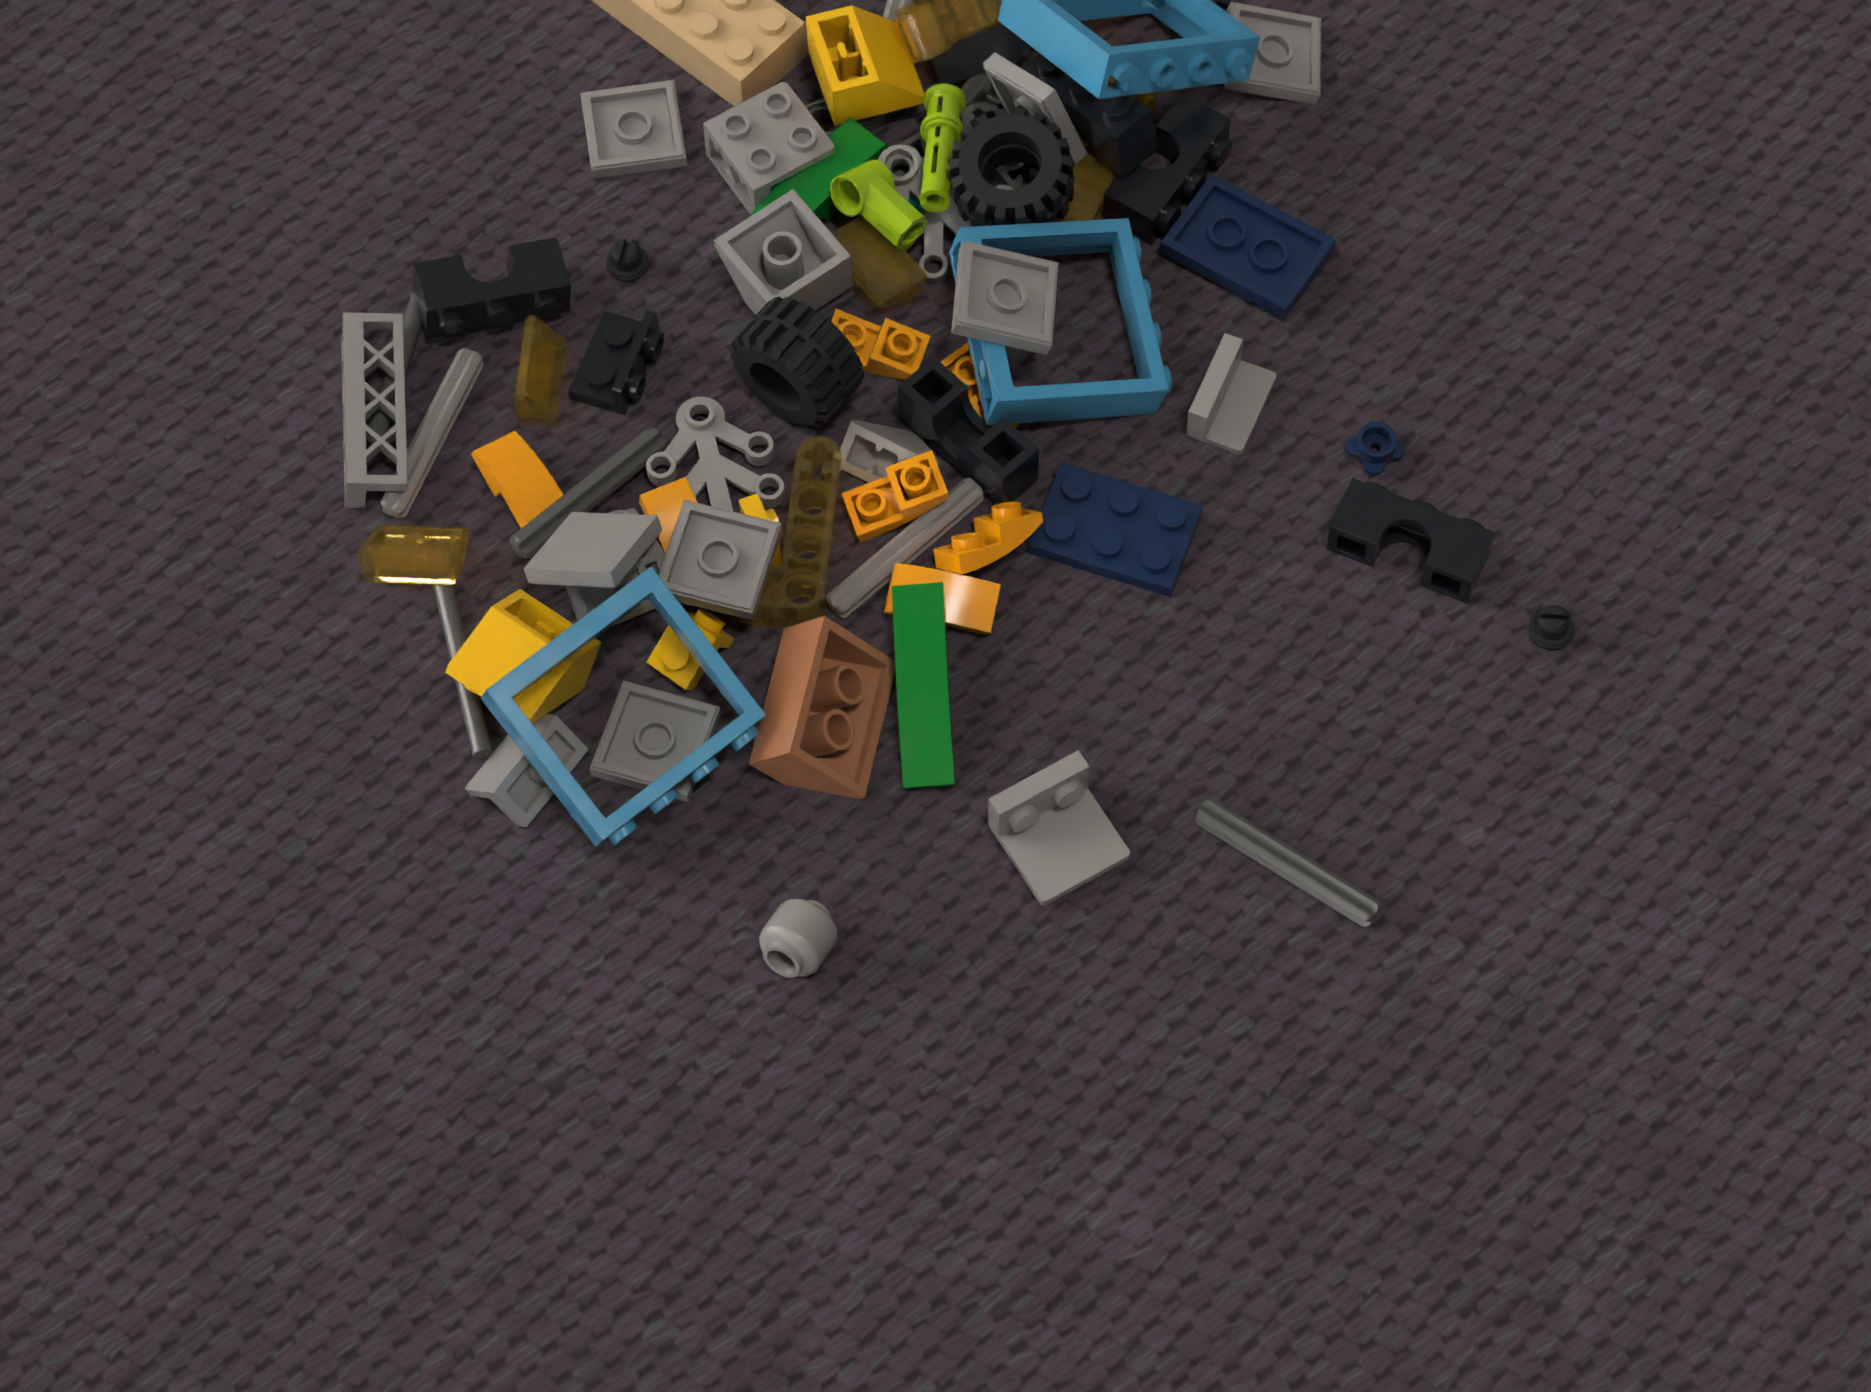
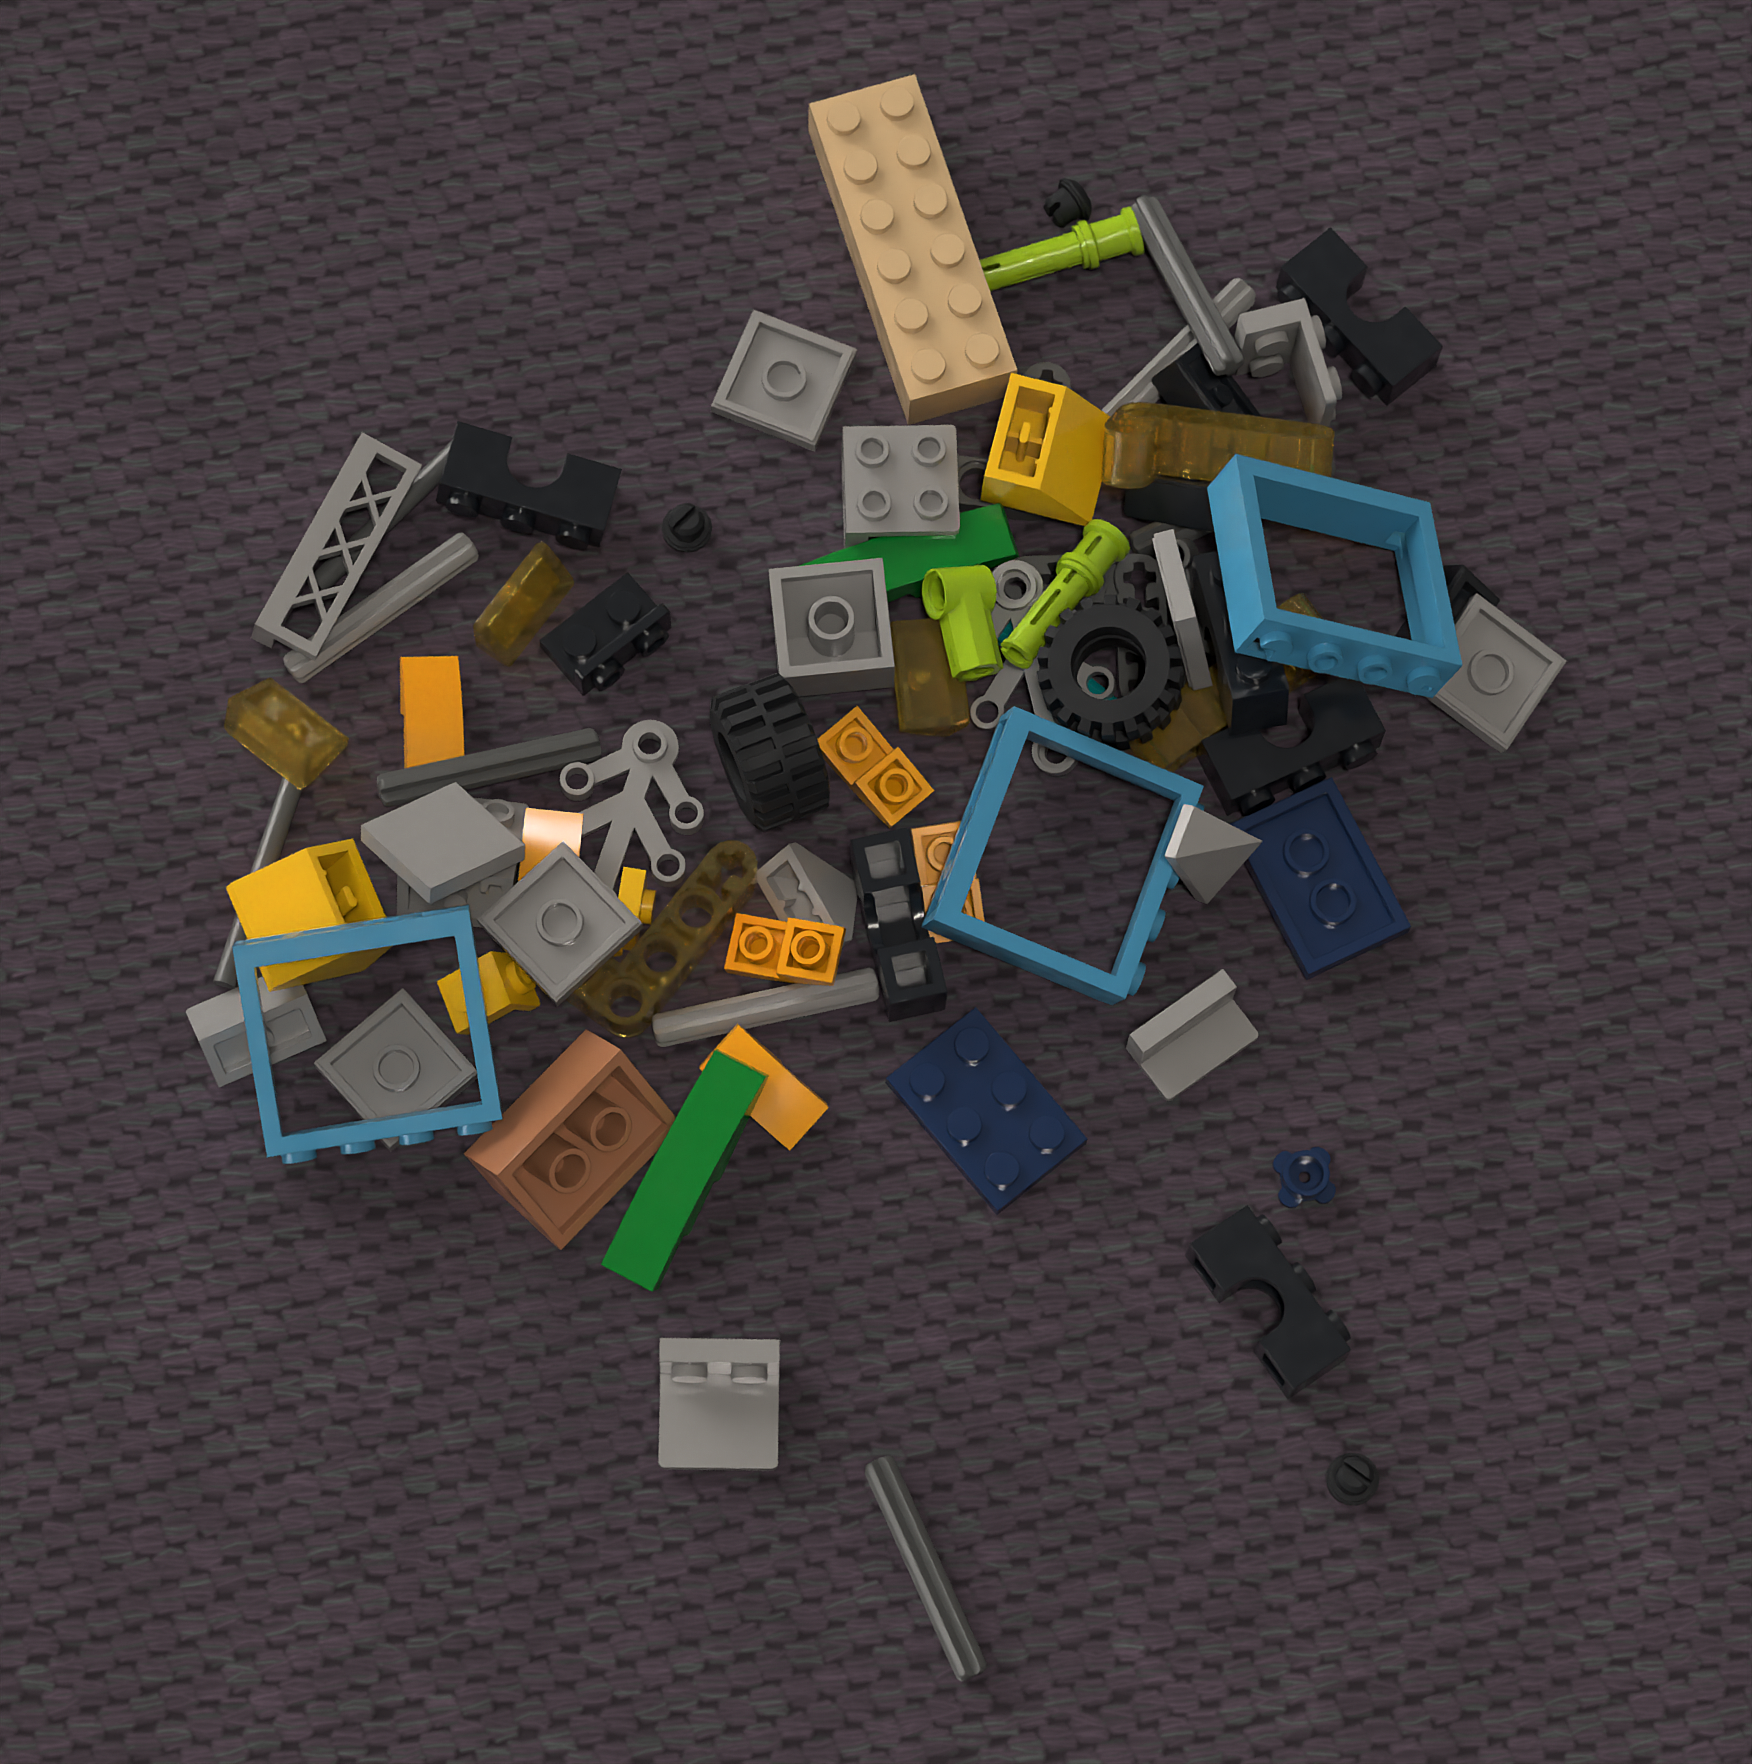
camera: 25 degrees right, 10 degrees up
(798, 938) = (401, 1362): light grey head -> none
(993, 538) = (864, 1051): light orange slope -> none
(1005, 298) = (1010, 811): light grey tile -> none
(1162, 260) = (1207, 851): none -> light grey slope

